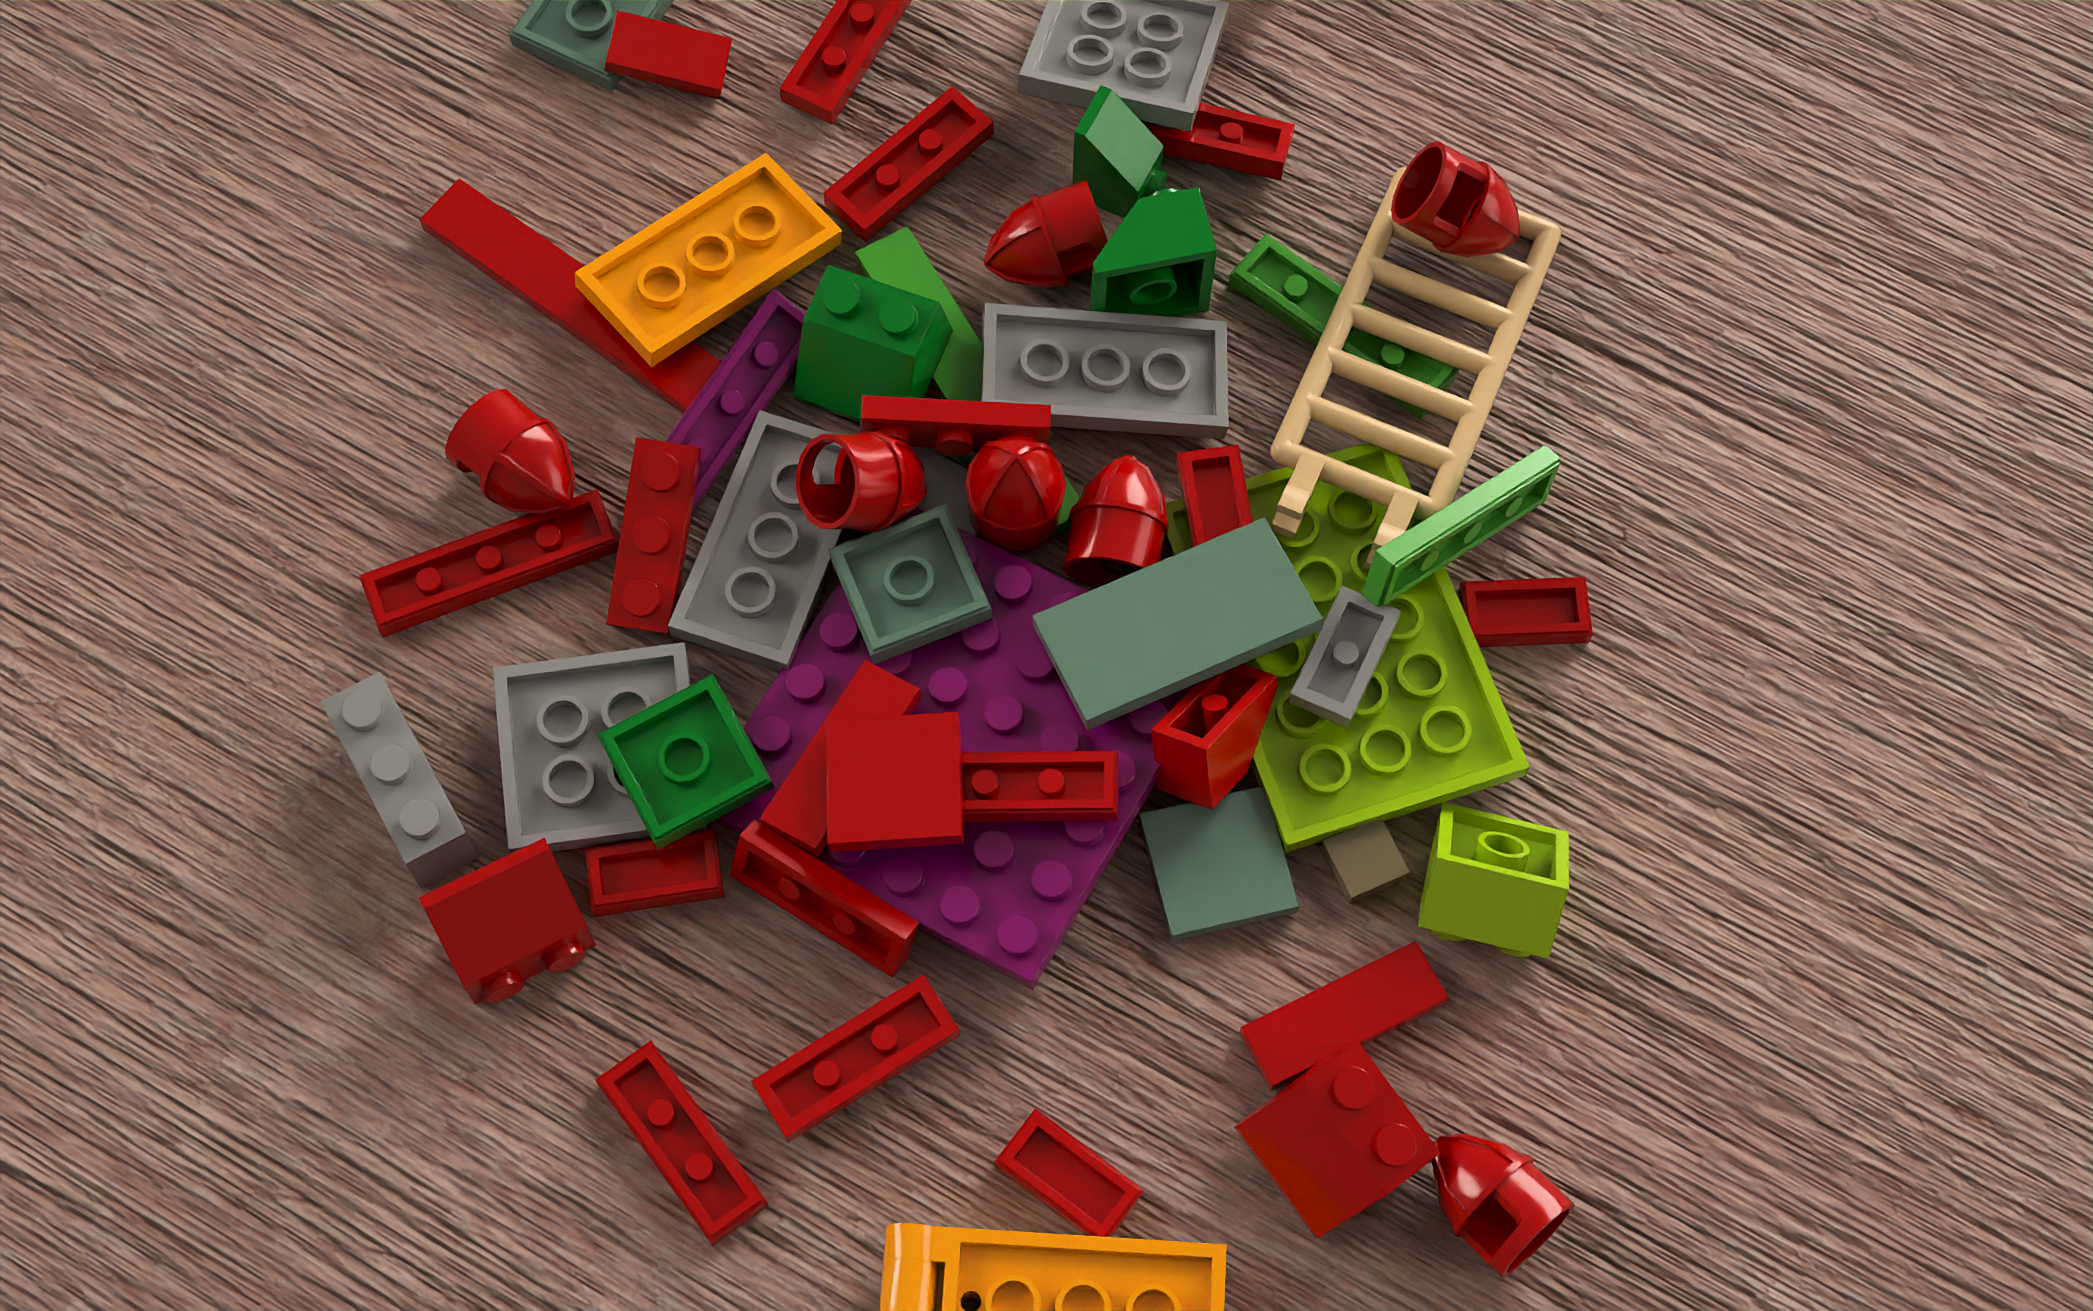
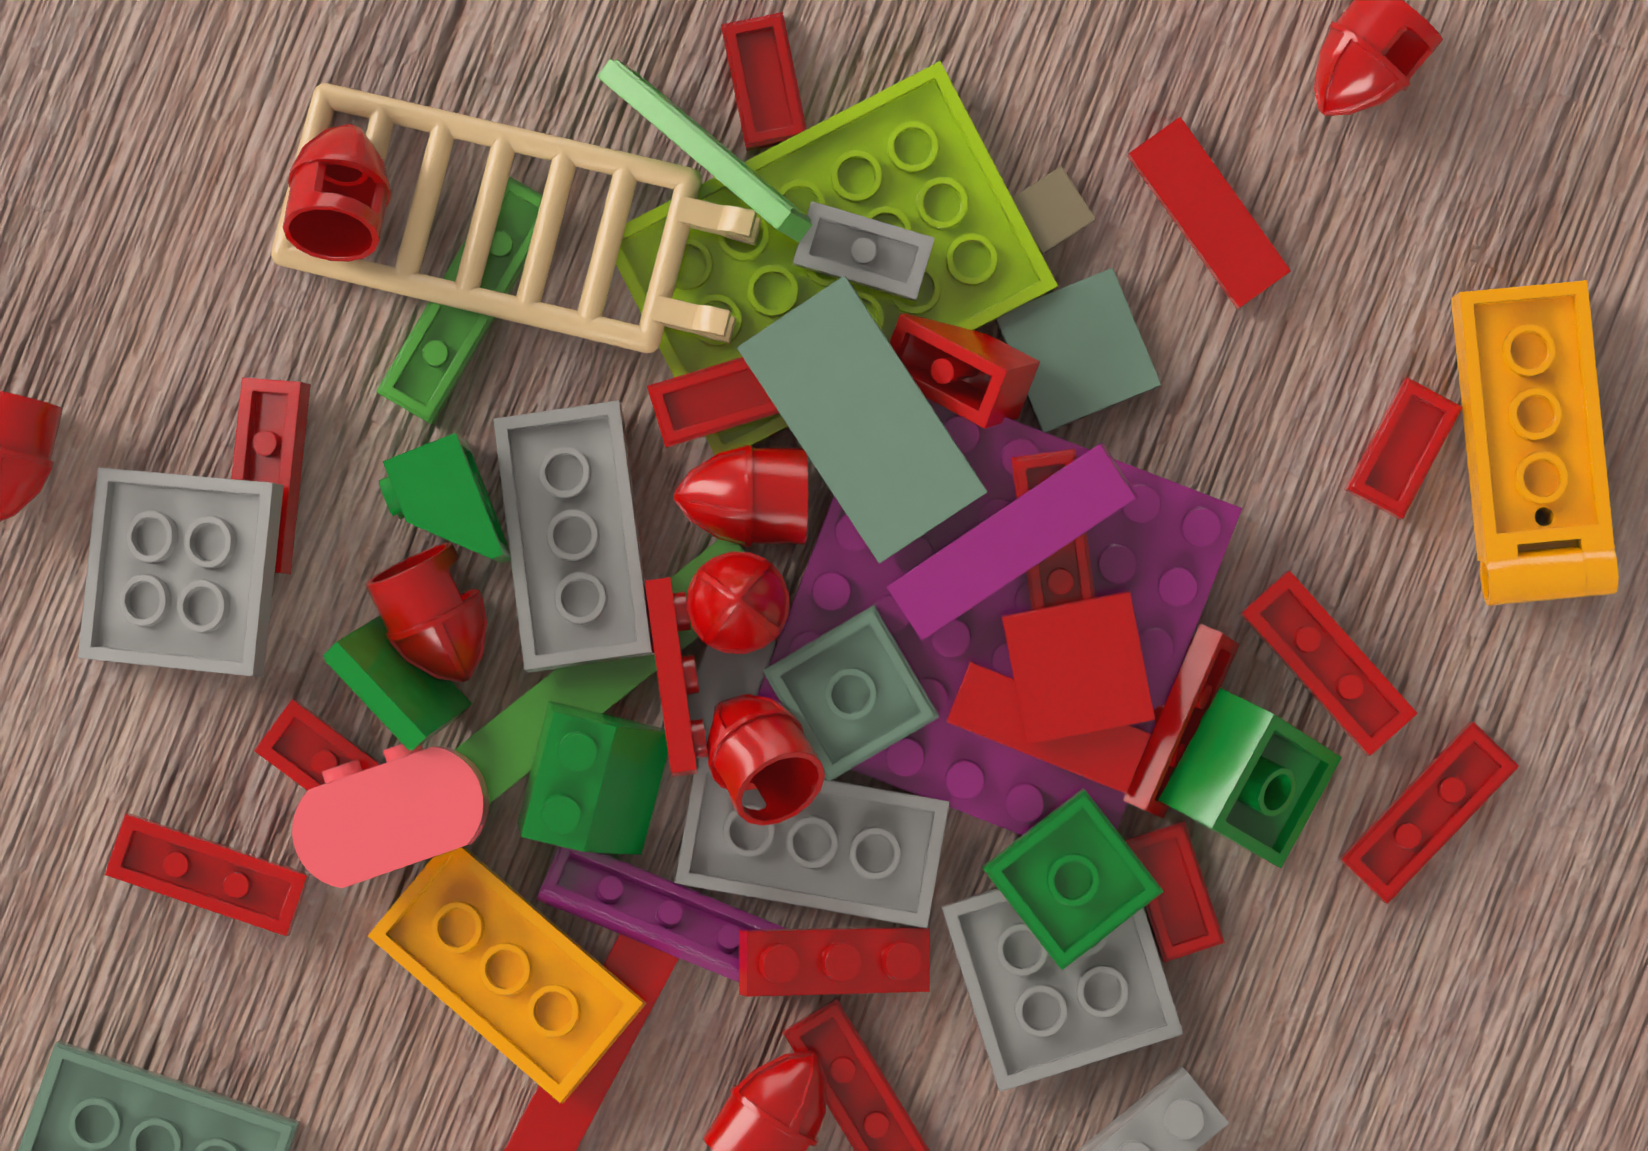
camera: 100 degrees left, 20 degrees up
(508, 923) = (1264, 1011): red slope -> none
(668, 54) = (258, 1066): red tile -> none
(751, 958) = (1250, 777): none -> green slope
(872, 172) = (389, 814): none -> coral brick
(983, 188) = (396, 691): none -> green tile
(1033, 738) = (1012, 541): none -> magenta tile
(1116, 155) = (326, 555): green slope -> none
(1337, 1139) = (1338, 205): red slope -> none
(1495, 881) = (1056, 82): lime slope -> none

